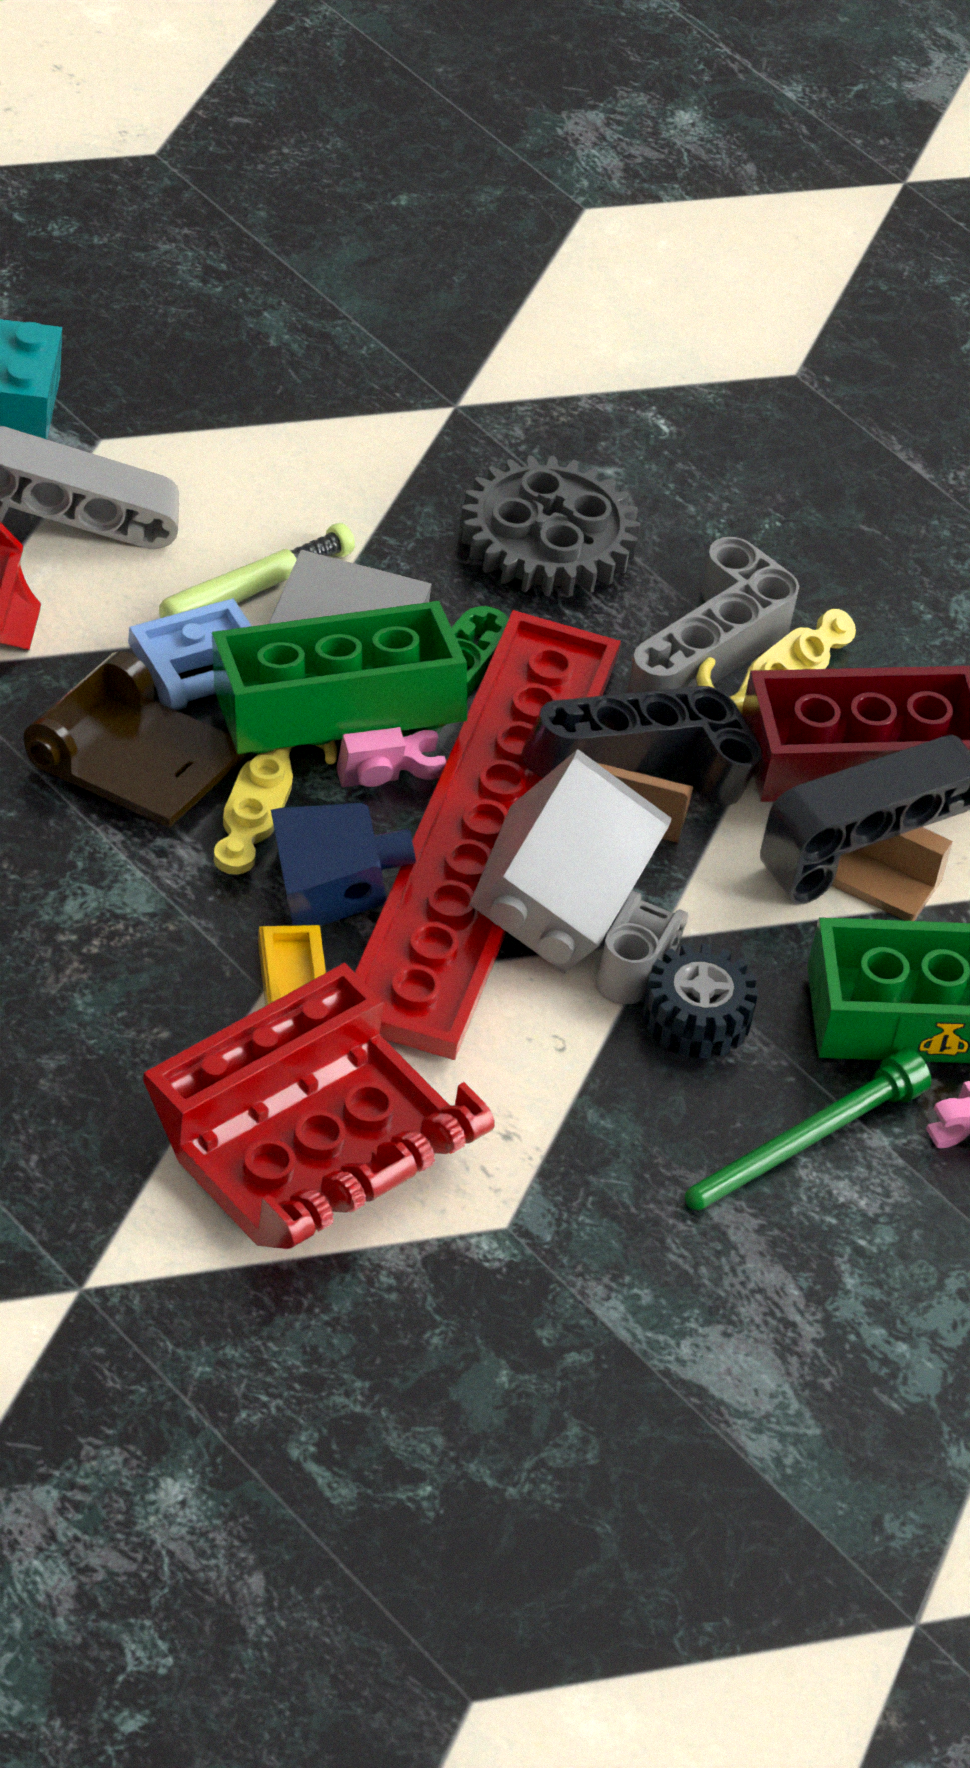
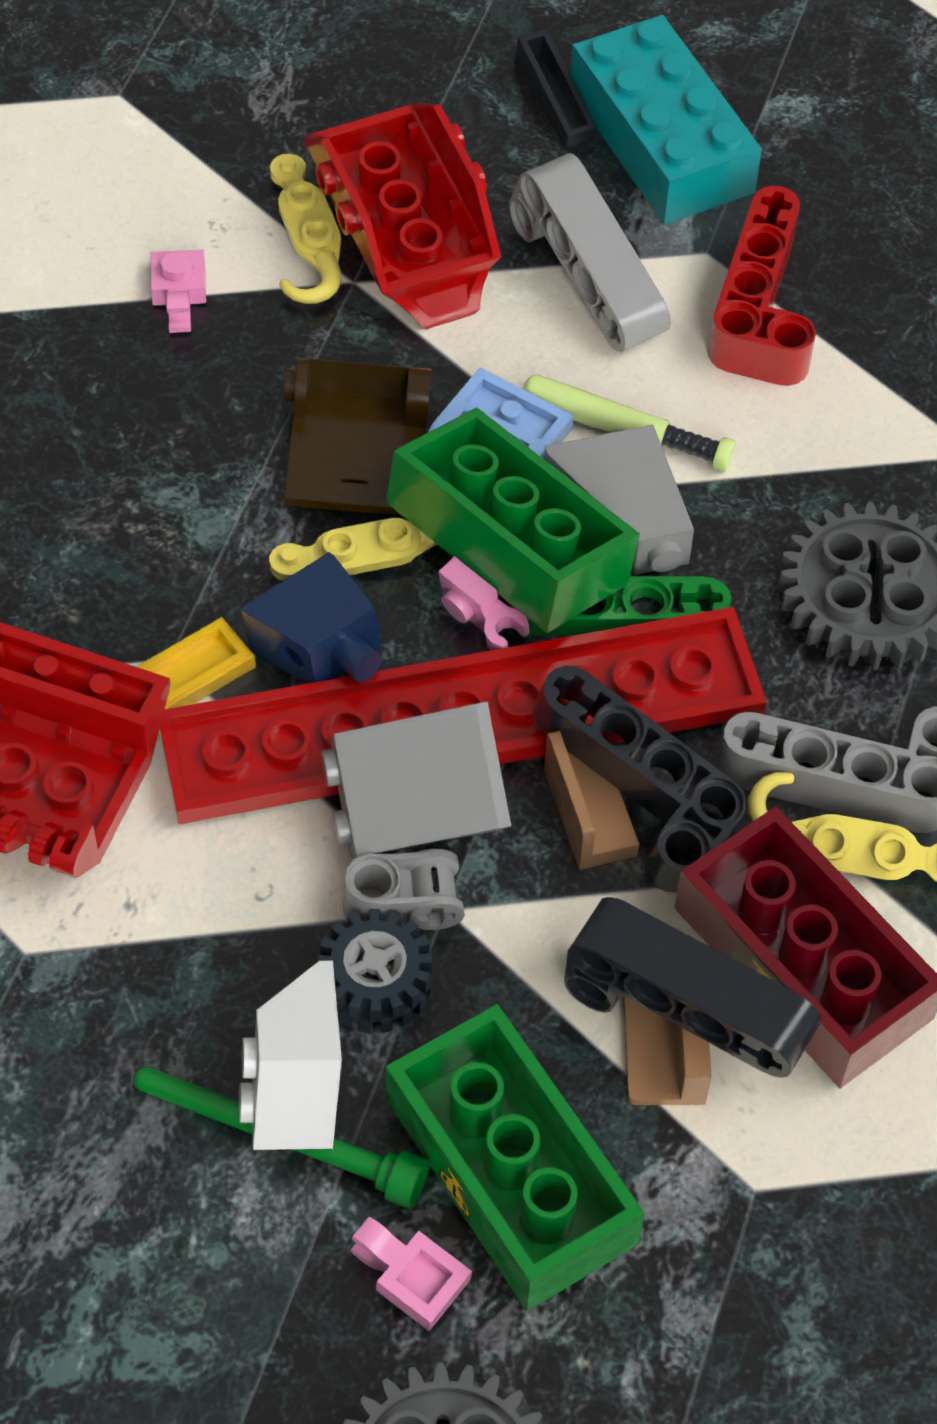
camera: 65 degrees right, 10 degrees up
(188, 430) = (746, 329): none -> red beam
(791, 1060) = (294, 1066): none -> white slope

